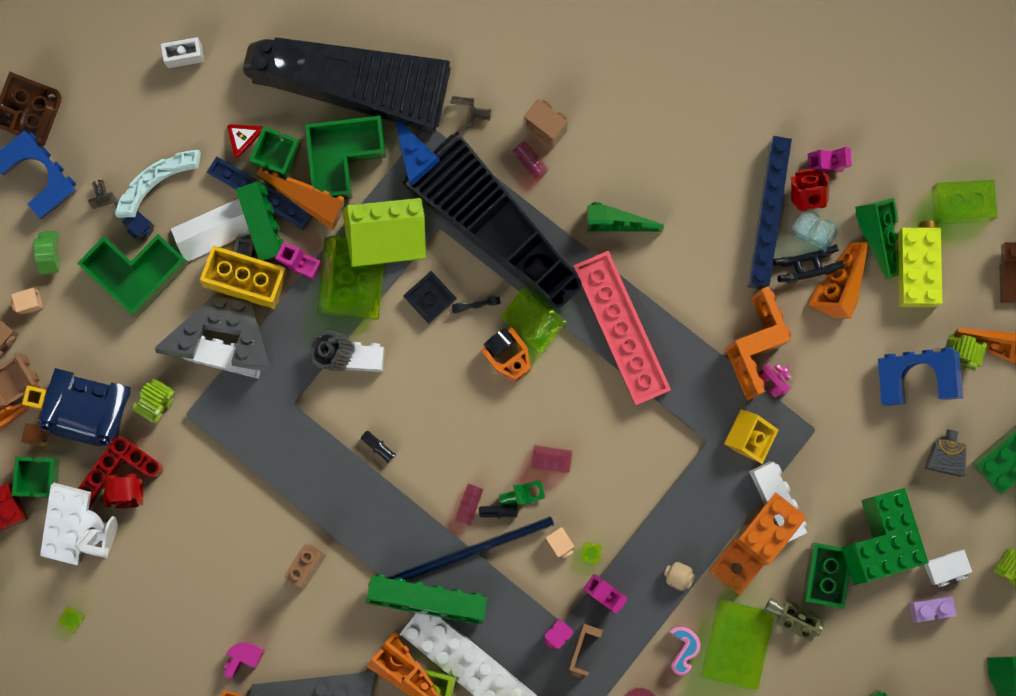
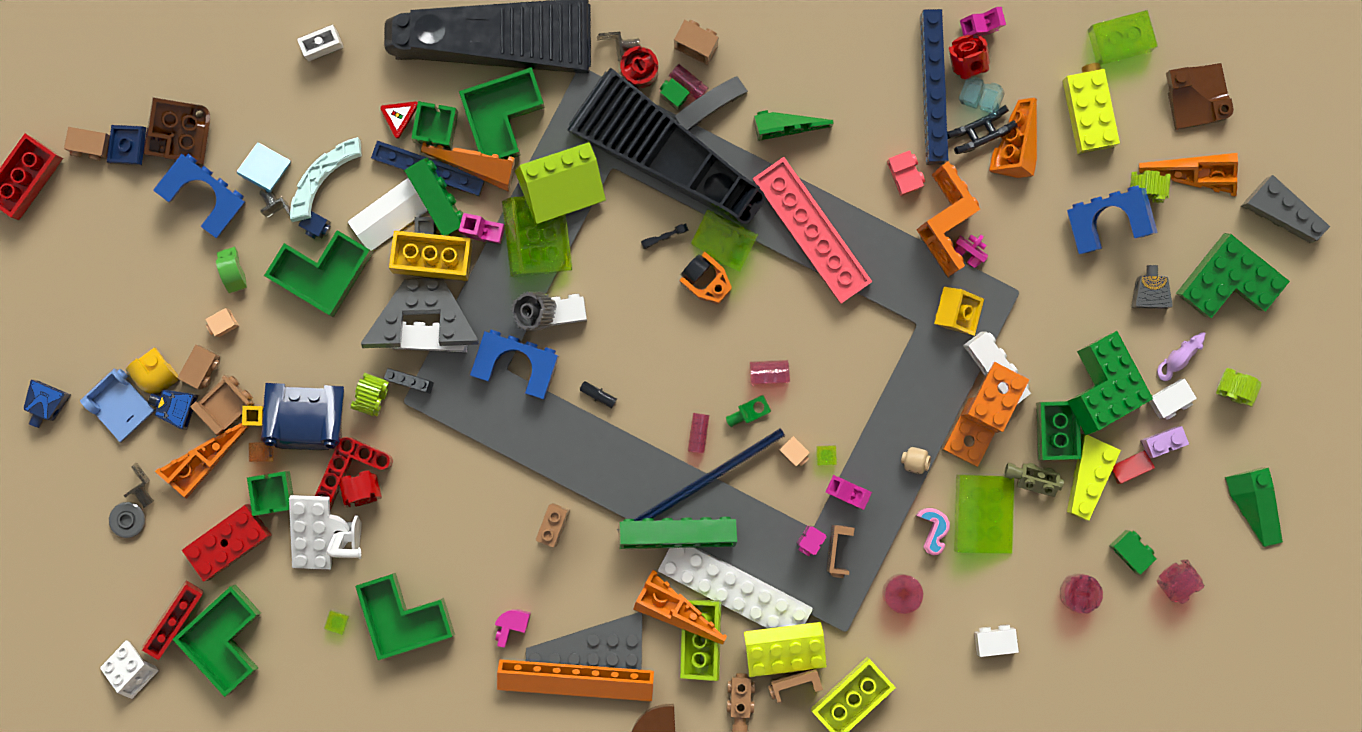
camera: 15 degrees left, 5 degrees up
(101, 160) = (263, 167): none -> tile
(125, 633) = (394, 626): none -> green piece
(195, 394) = (408, 380): none -> piece
(286, 378) = (494, 346): none -> blue arch
(416, 155) = (576, 101): blue wing -> none
(430, 297) = (618, 238): black plate -> none
(485, 136) = (639, 66): none -> red brick
(498, 511) = (728, 433): black axle -> none
(514, 168) = (674, 93): none -> green brick
(547, 184) = (711, 102): none -> dark grey slope
(725, 291) = (905, 173): none -> coral brick
(851, 627) = (1090, 475): none -> neon yellow wedge
(878, 227) = (1042, 79): green wedge -> none
(894, 628) = (1132, 467): none -> slope
(963, 528) = (1180, 358): none -> lavender animal

